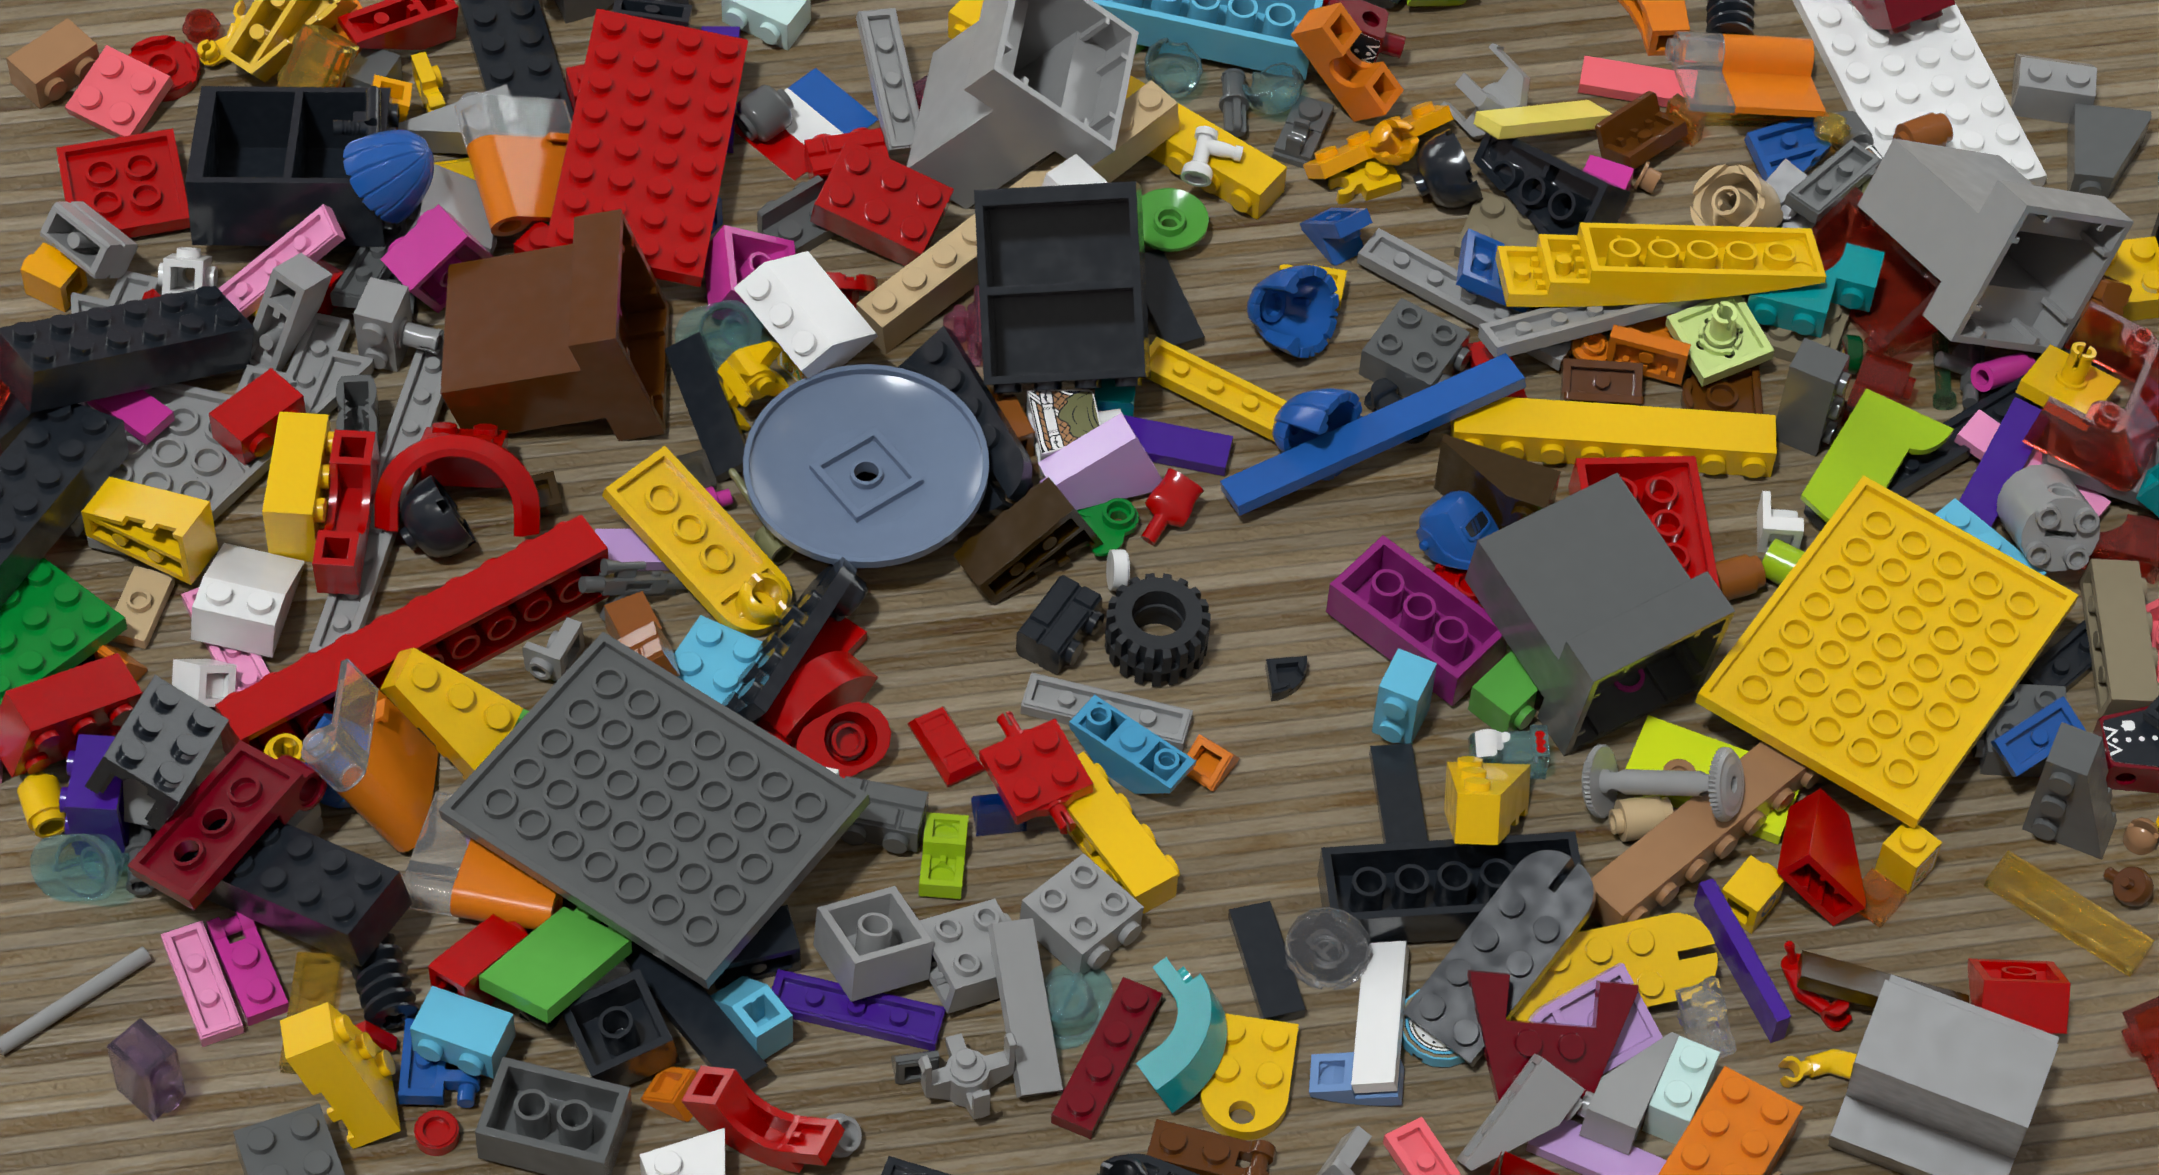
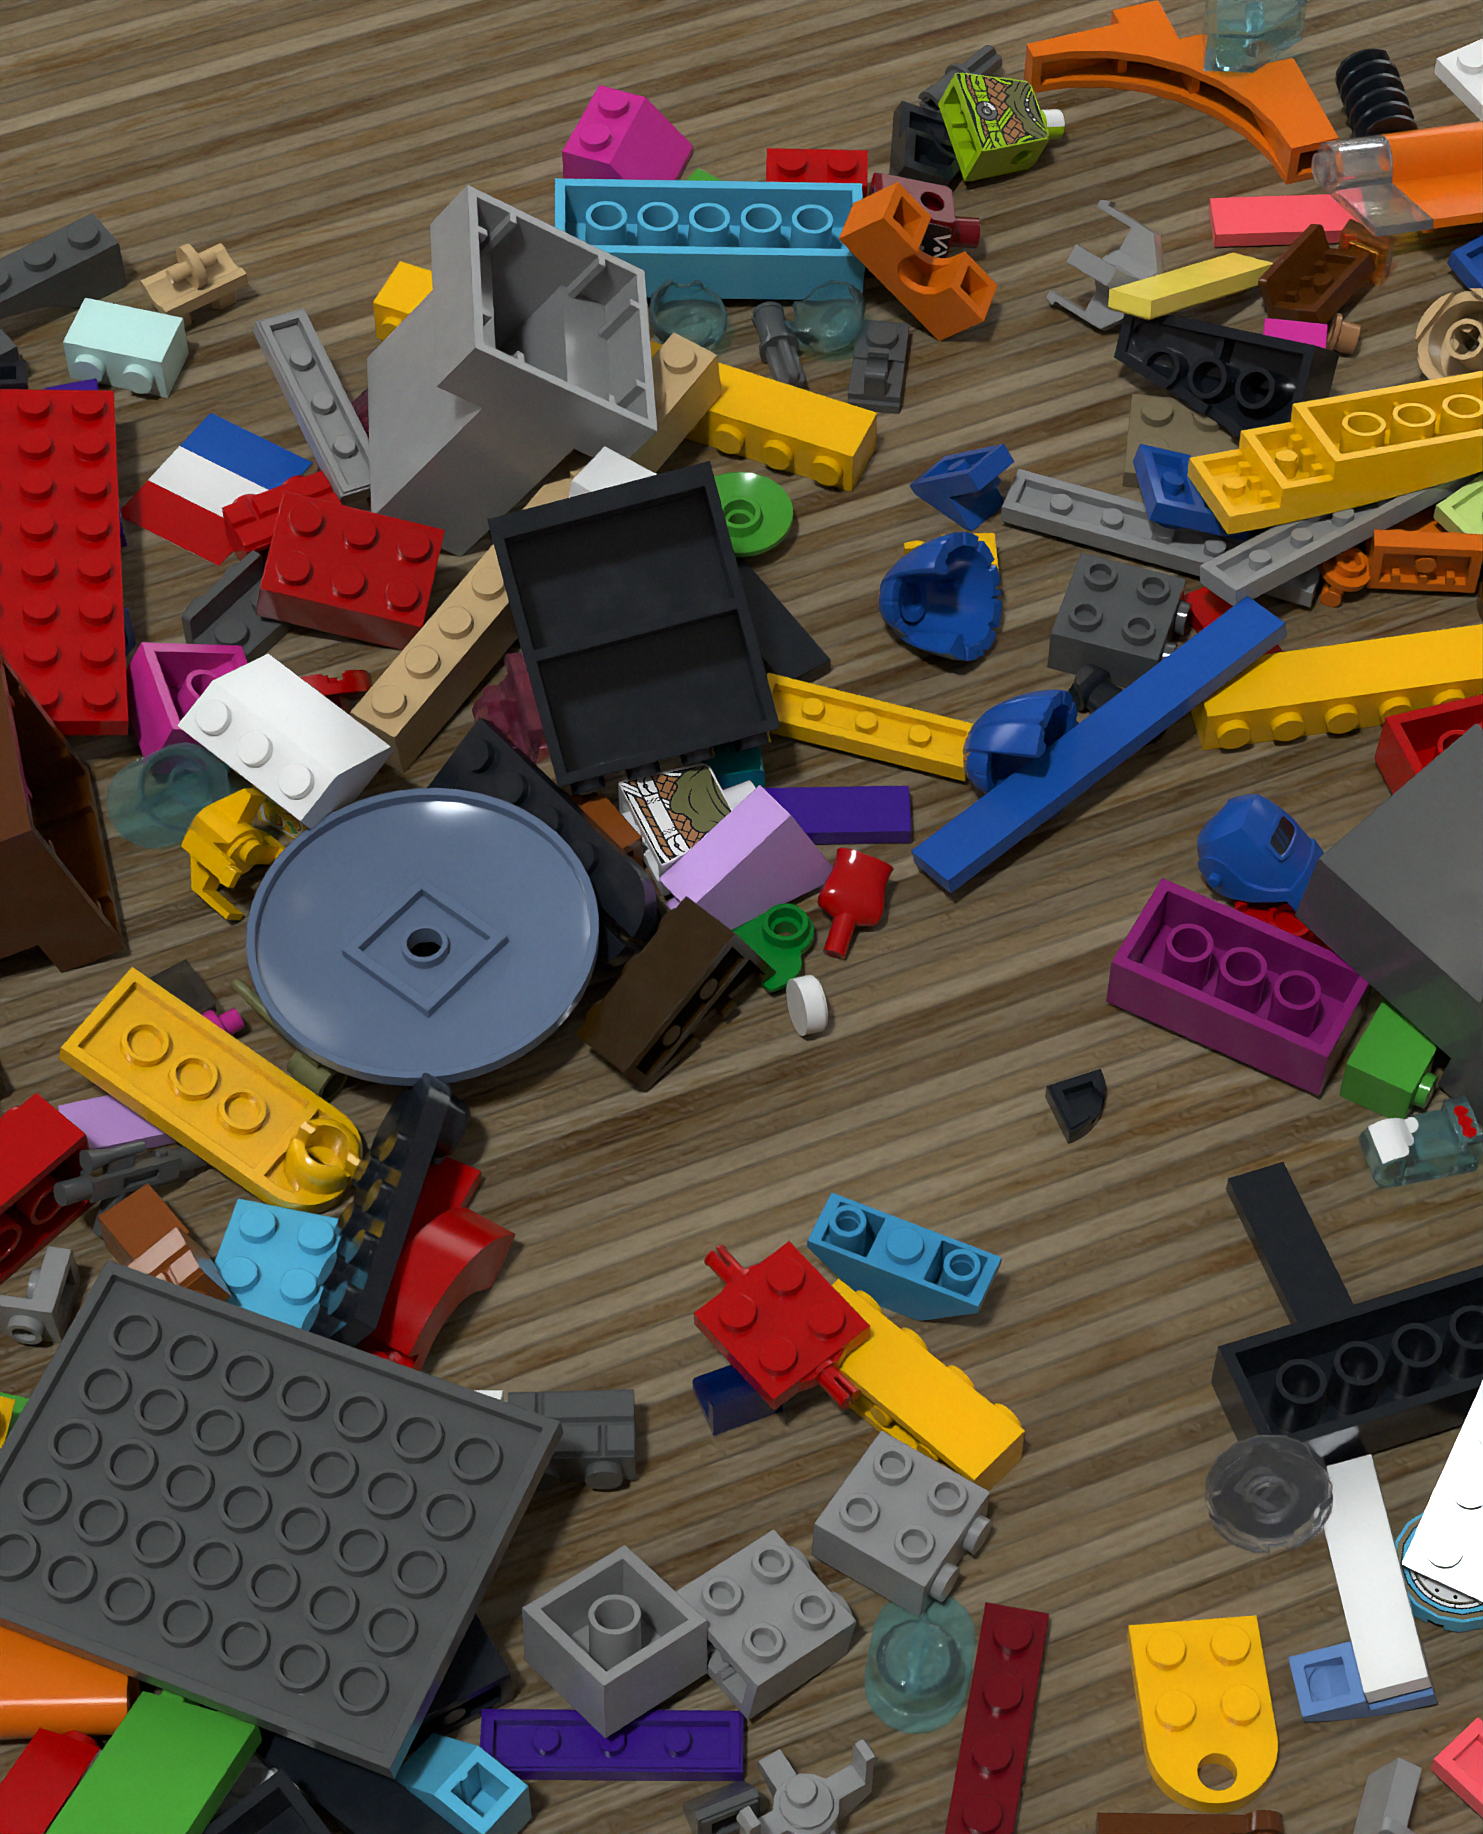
camera: 10 degrees left, 0 degrees up
(707, 404) = (177, 896): black tile -> none
(764, 113) = (157, 484): dark grey head -> none
(847, 738) = (494, 1337): red piece -> none
(943, 855) = (676, 1477): lime slope -> none
(945, 746) = (635, 1313): red tile -> none
(1025, 1006) = (864, 1687): light grey tile -> none
(1060, 625) = (749, 1101): black brick -> none
(1063, 699) = (790, 1207): light grey tile -> none
(1163, 603) = (894, 1039): black tyre -> none
(1195, 1045) = (1126, 1688): teal arch -> none
(1198, 171) = (762, 442): white piece -> none
(1212, 762) = (1019, 1248): orange slope -> none
(1265, 962) = (1181, 1532): black tile -> none
(1368, 178) = (982, 406): yellow plate -> none
(1390, 142) = (1002, 354): light orange plate -> none
(1404, 697) = (1259, 1100): medium azure brick -> none
(1446, 172) = (1086, 378): black cylinder -> none
(1484, 799) = (1413, 1225): yellow wedge -> none
(1500, 482) = (1312, 776): dark brown slope -> none
(1602, 382) = (1375, 609): reddish brown bracket -> none

